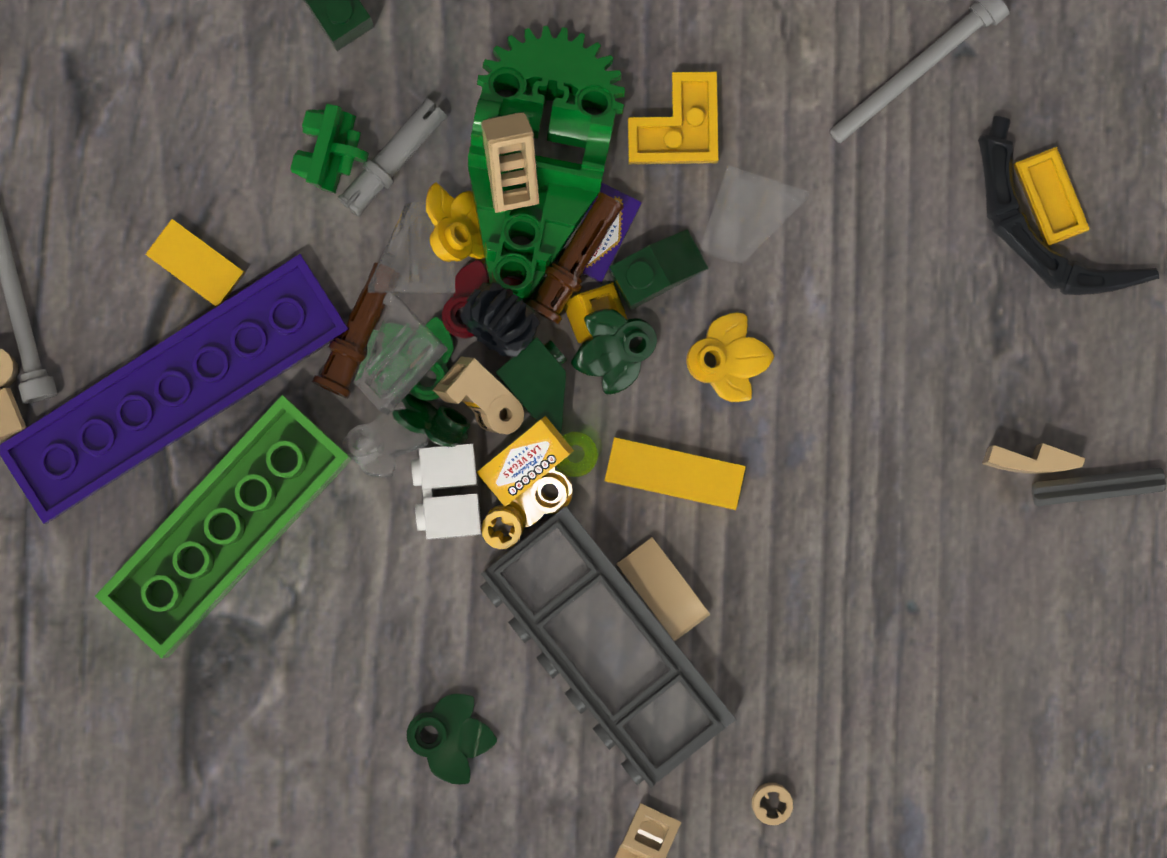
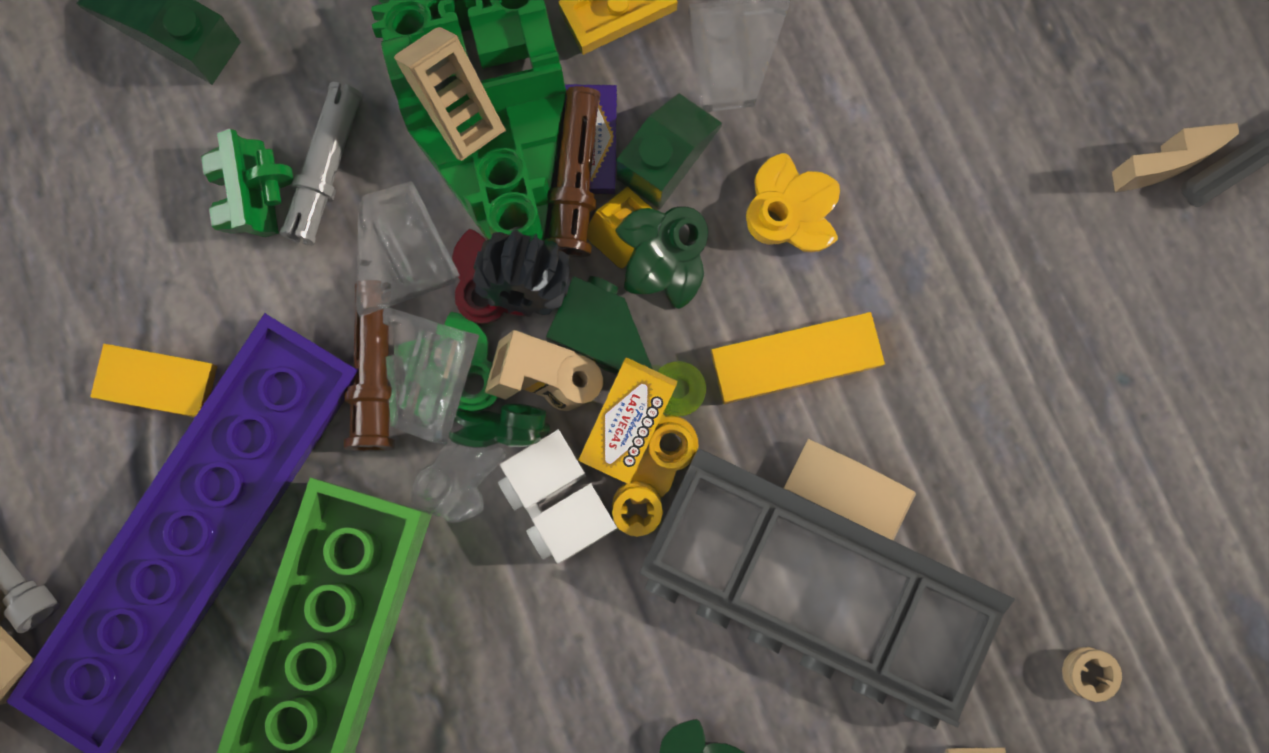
camera: 25 degrees left, 5 degrees down
(455, 223) = (424, 200): yellow plate -> none

